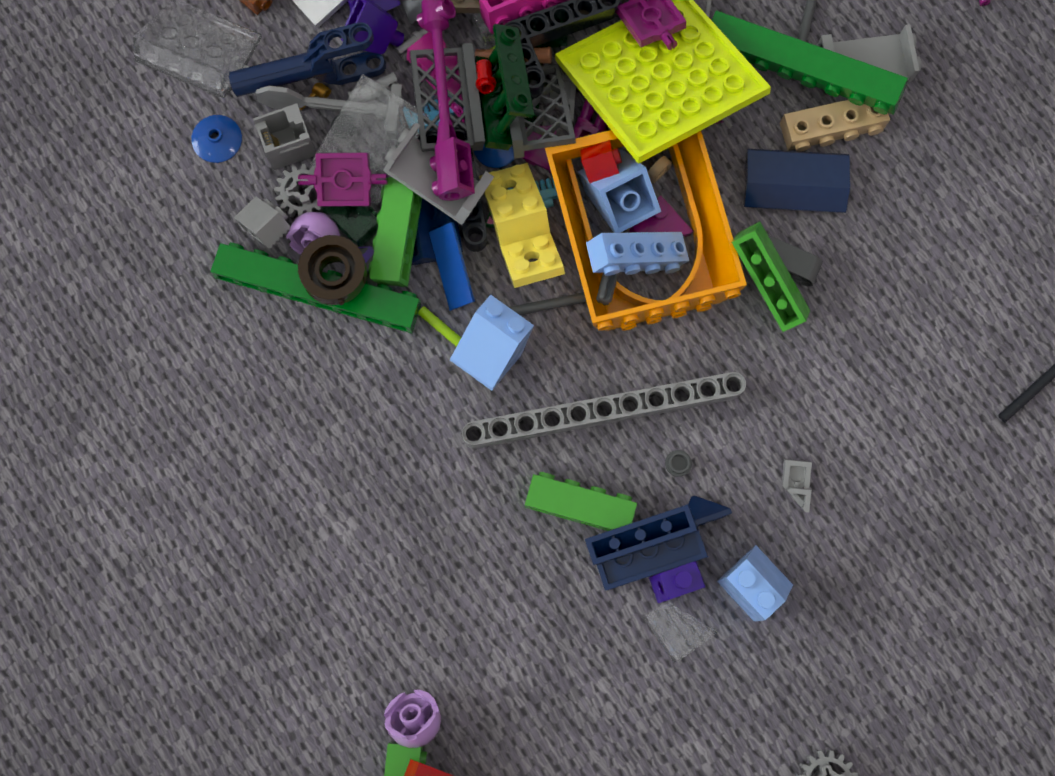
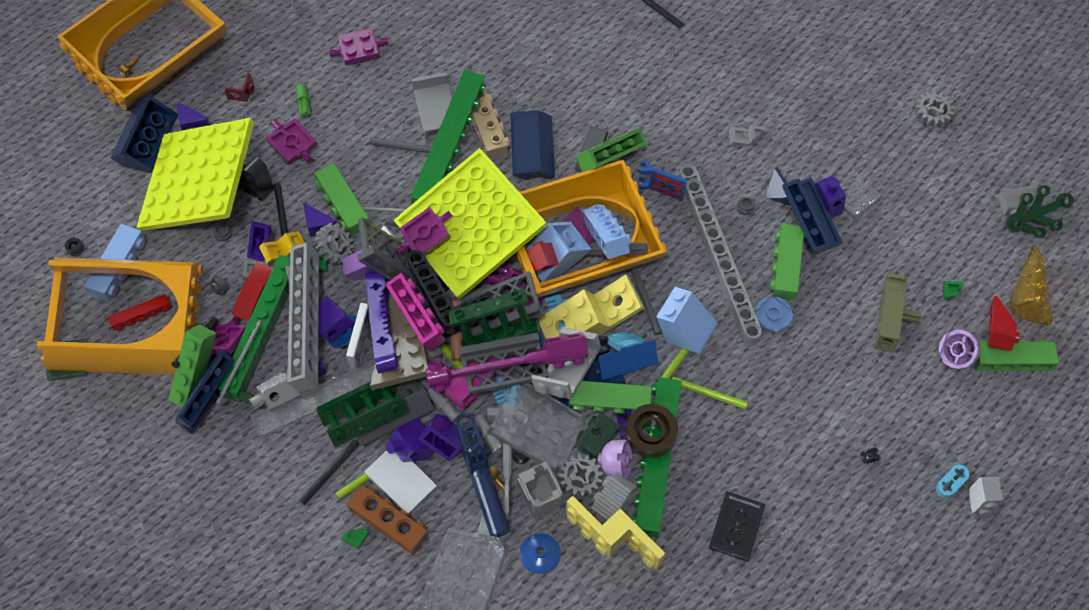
camera: 95 degrees left, 15 degrees down
(195, 701) = (985, 495): none -> light grey brick
(213, 209) = (614, 533): none -> light yellow bracket
(214, 375) = (737, 526): none -> black tile
(227, 671) = (956, 484): none -> medium azure beam
(280, 563) = (870, 455): none -> black bush
(343, 179) = (576, 434): magenta plate -> none
(399, 369) = (712, 394): none -> lime bar
(483, 260) = (624, 340): none -> medium azure piece
(484, 636) = (893, 312): none -> olive piece
(485, 81) = (487, 335): red pin -> none
(499, 480) = (776, 319): none -> medium blue tile
(518, 736) = (951, 289): none -> green tile
(723, 330) = (662, 182): none -> blue flag
(756, 585) = (823, 151): light blue slope -> none

